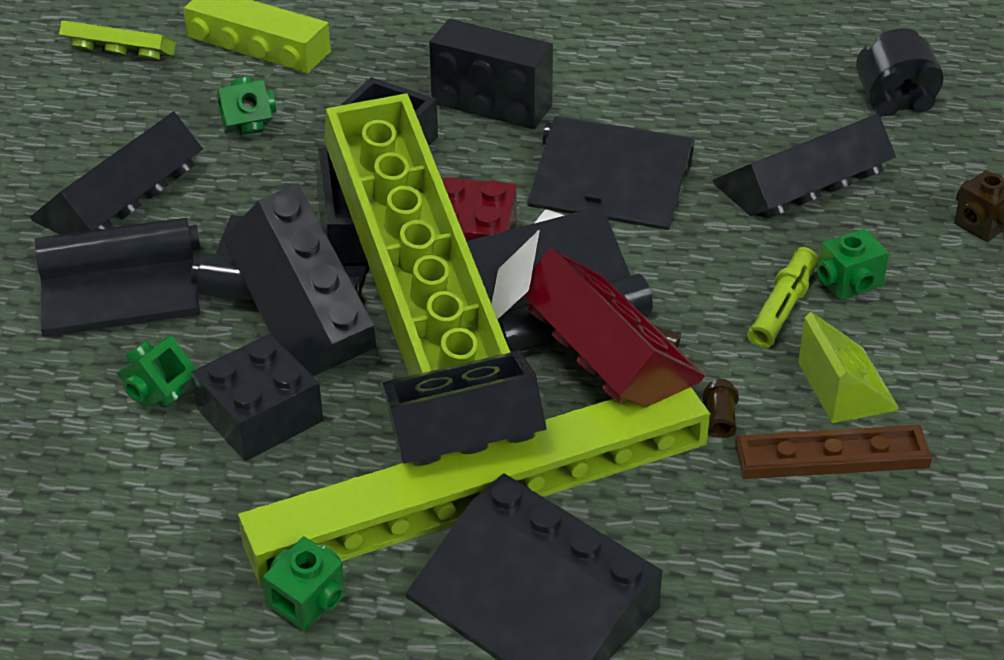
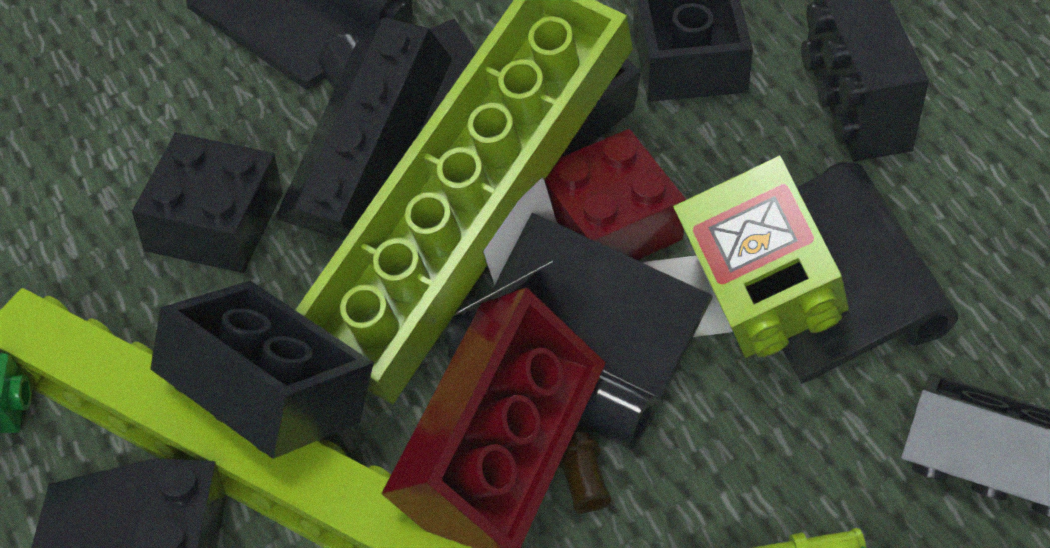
camera: 55 degrees right, 10 degrees up
(156, 372) = (159, 106): green brick -> none
(605, 165) = (755, 230): none -> lime container

